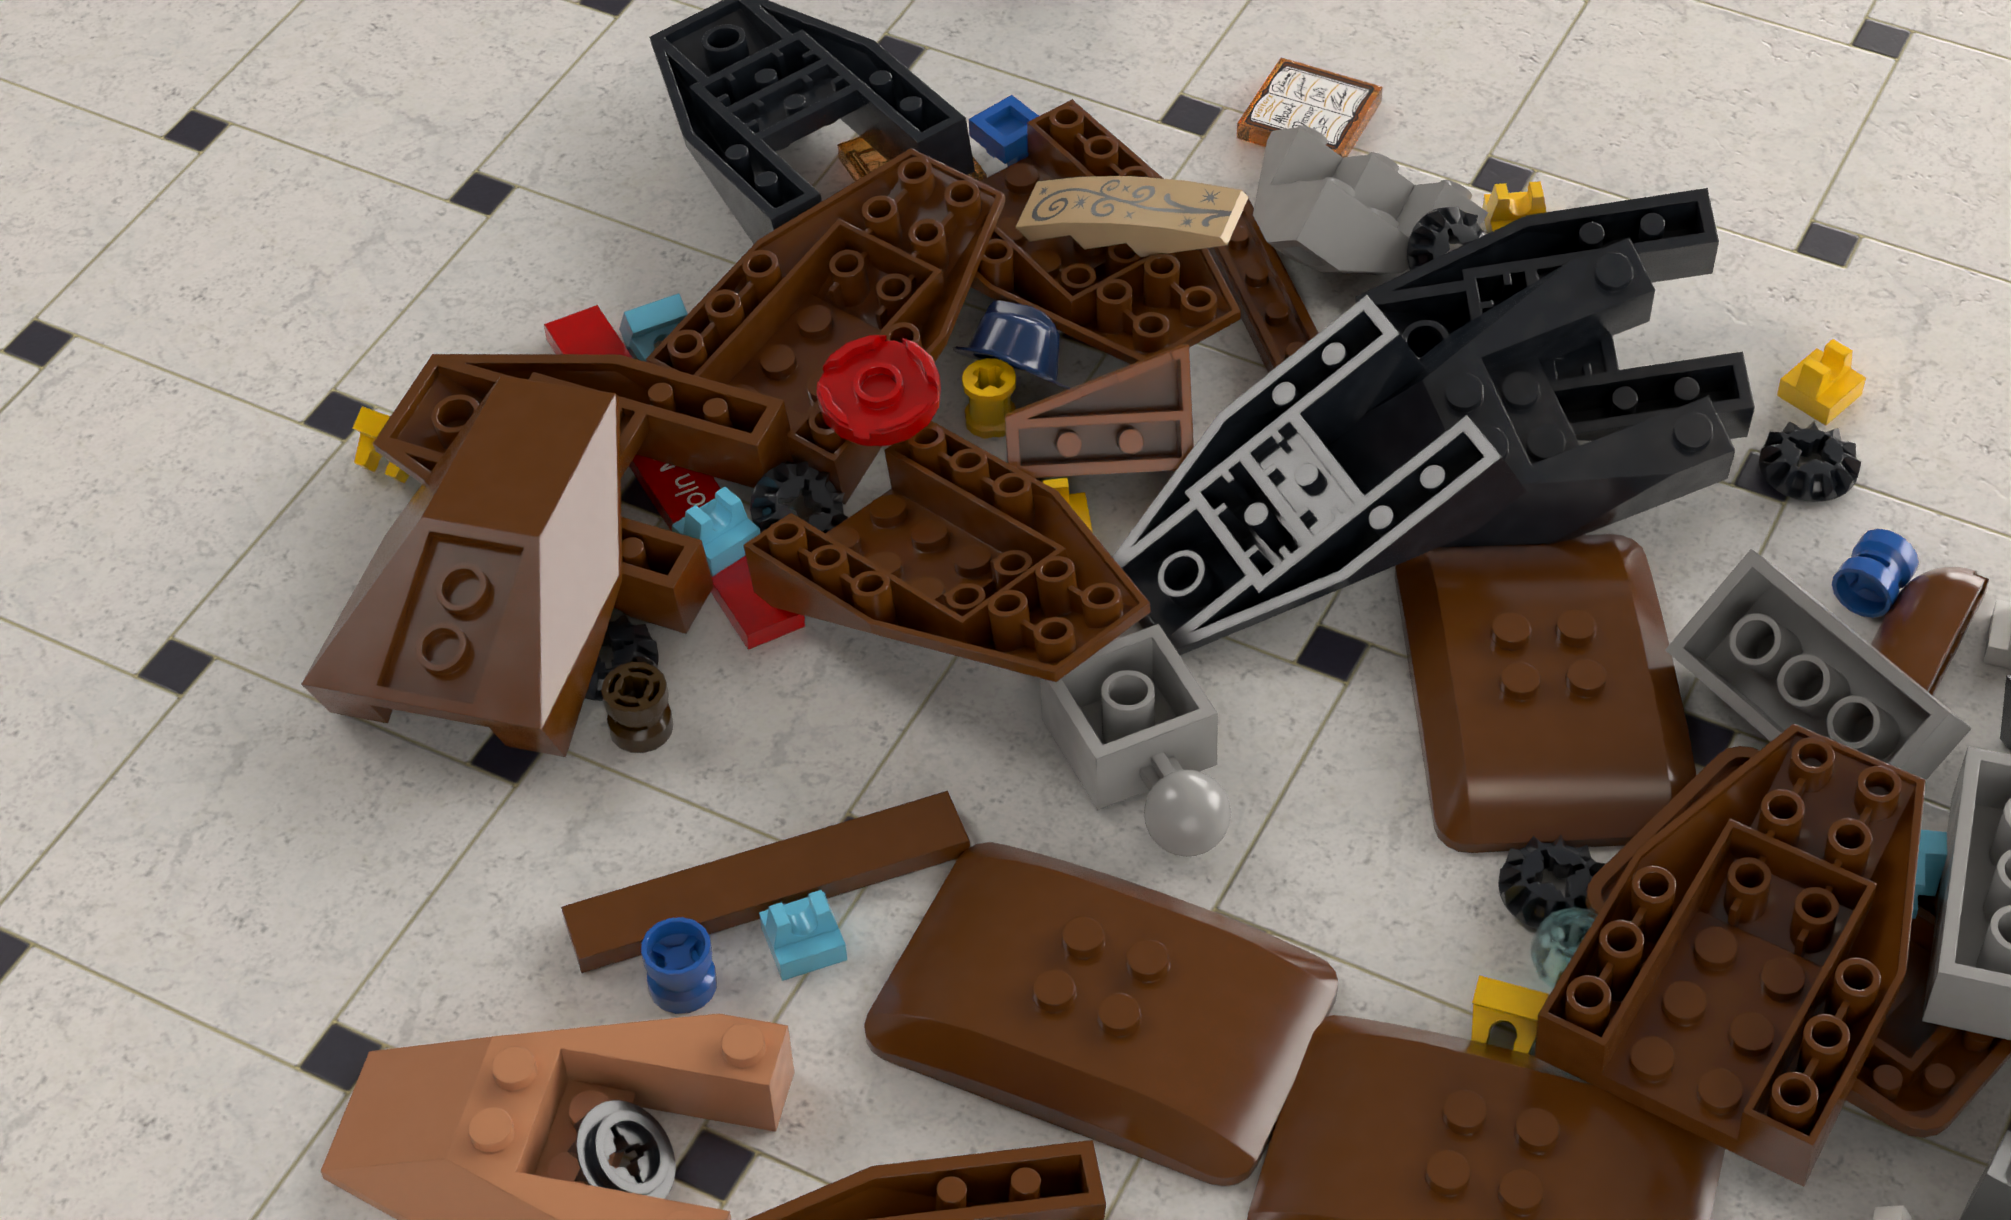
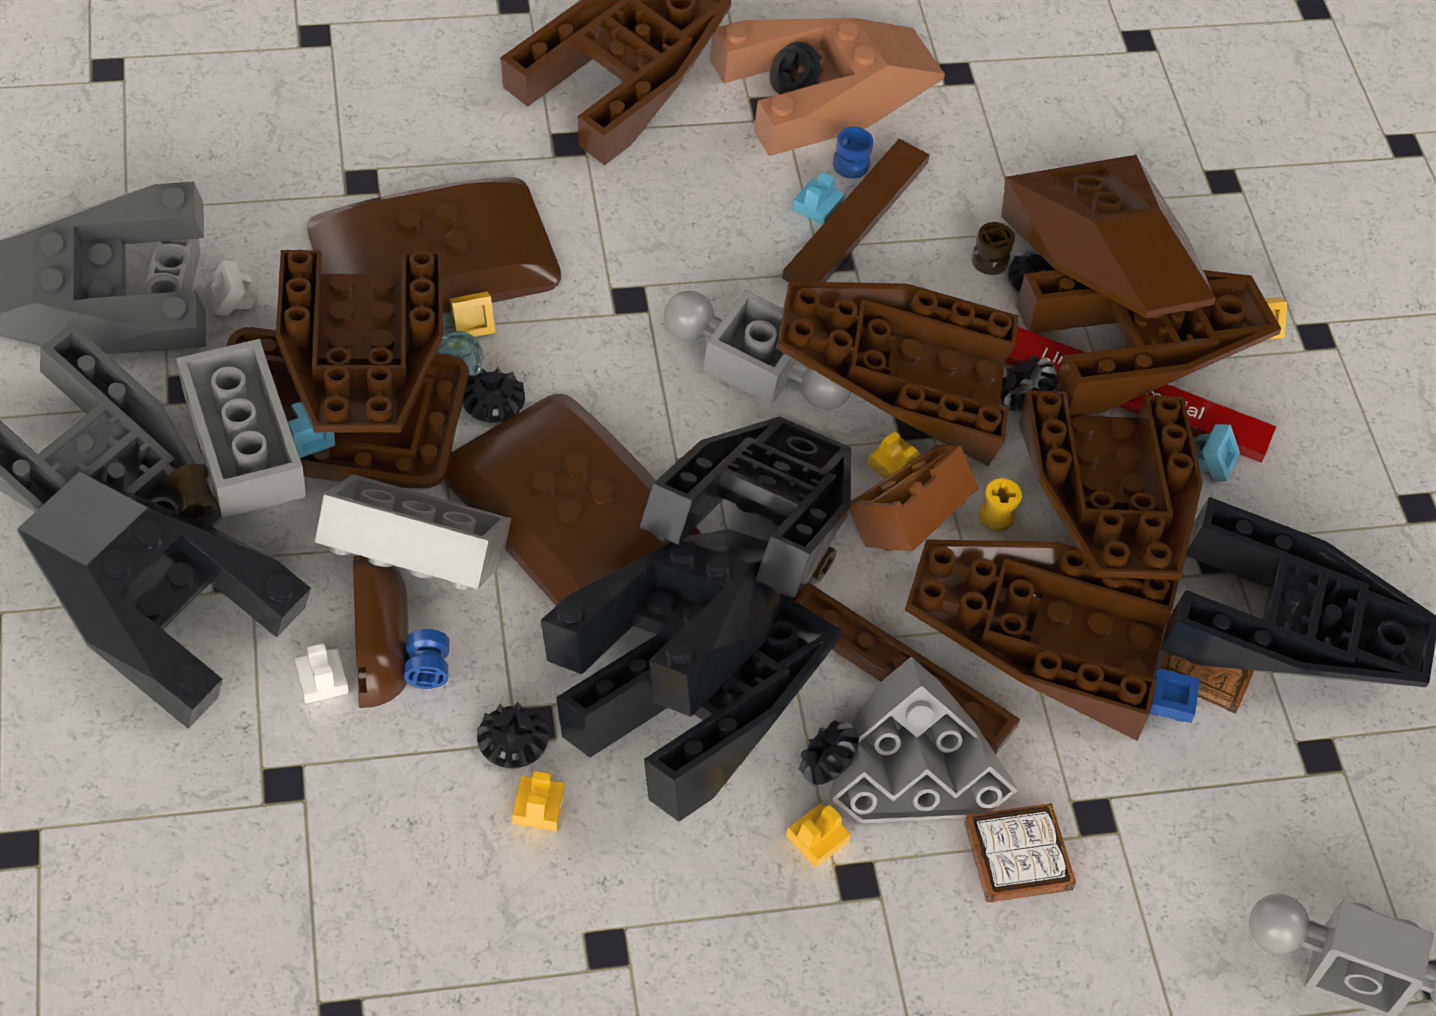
camera: 135 degrees right, 5 degrees up
(721, 527) = (1052, 341): medium azure tile -> none
(878, 390) = (1037, 417): red tile -> none
(1019, 337) = (1000, 518): dark blue piece -> none
(1104, 1010) = (660, 238): reddish brown wedge -> none
(1133, 210) = (1015, 615): tan slope -> none

